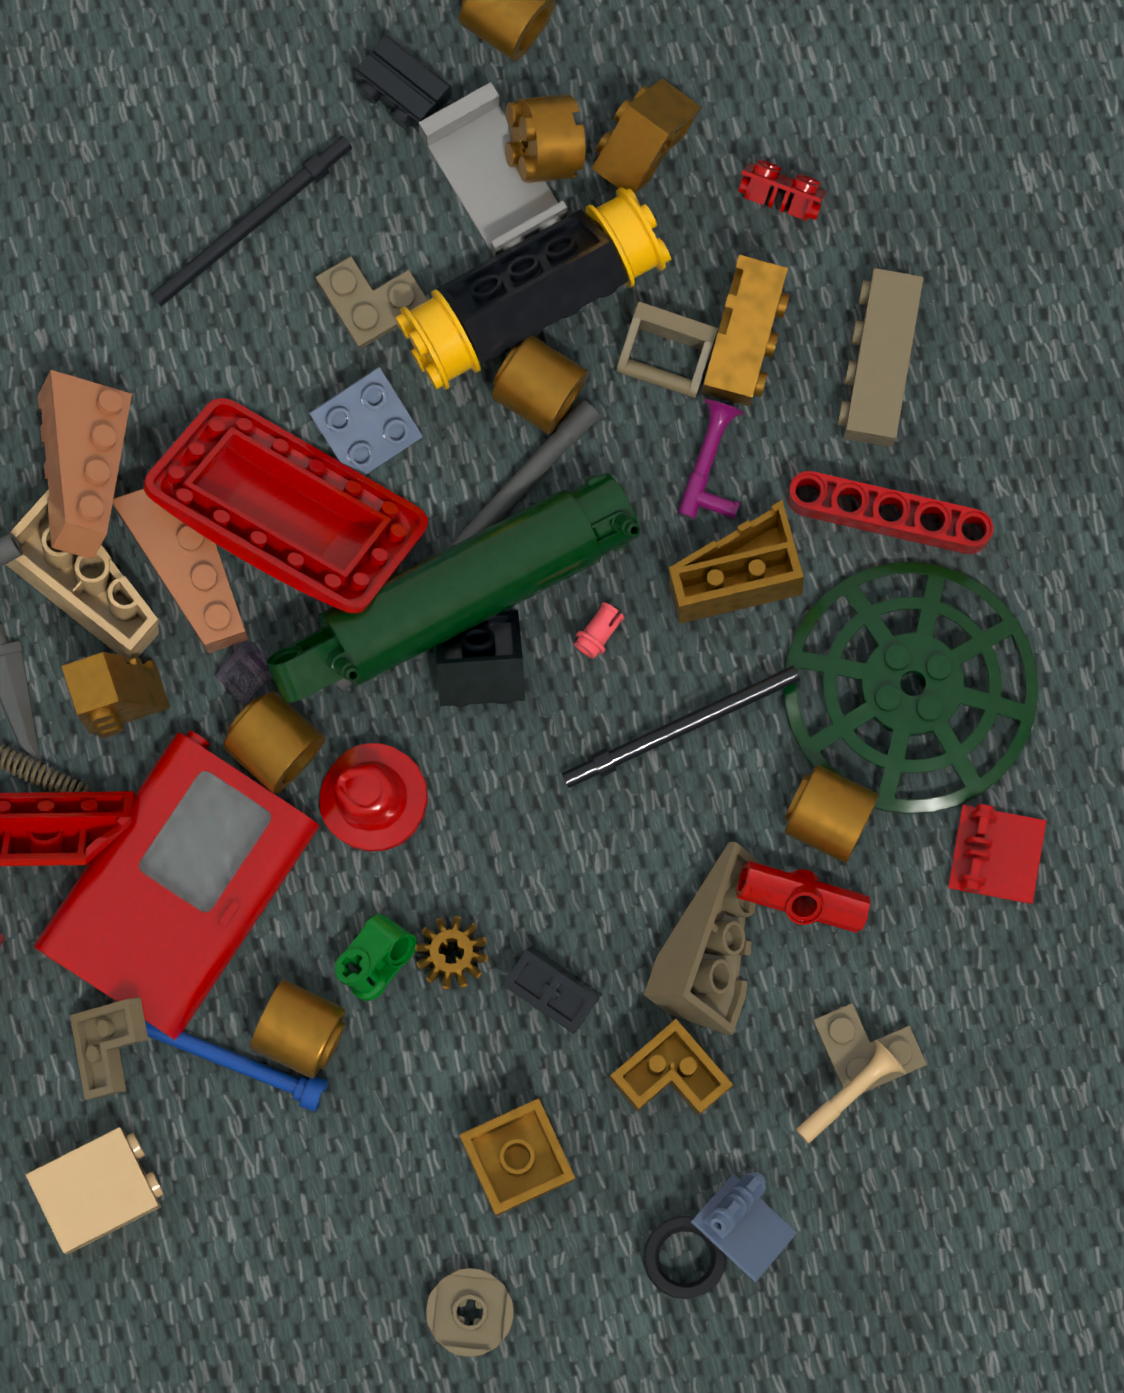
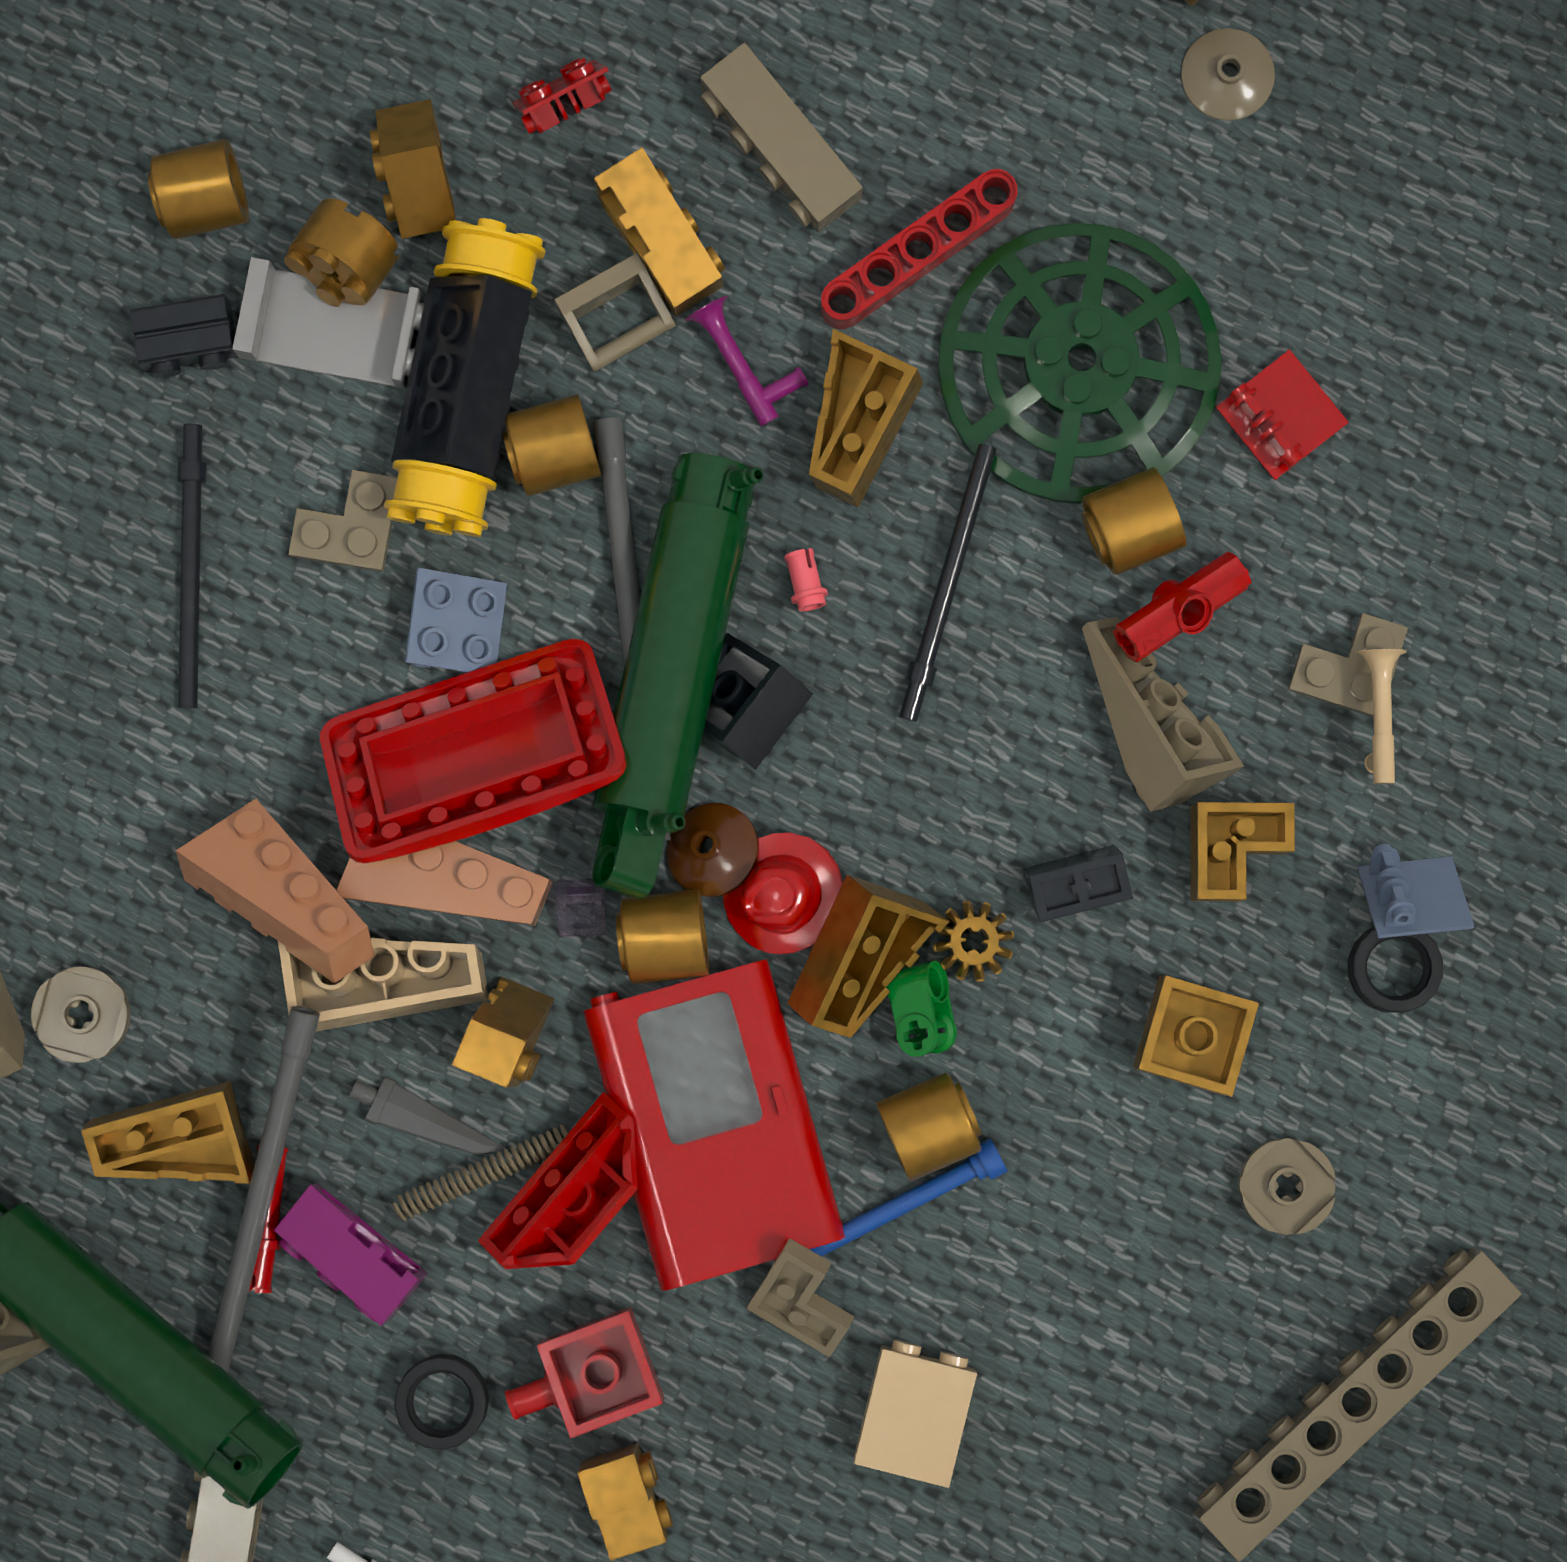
camera: 45 degrees left, 5 degrees up
(366, 739) = (727, 862): none -> reddish brown dish
(376, 881) = (859, 953): none -> pearl gold wedge

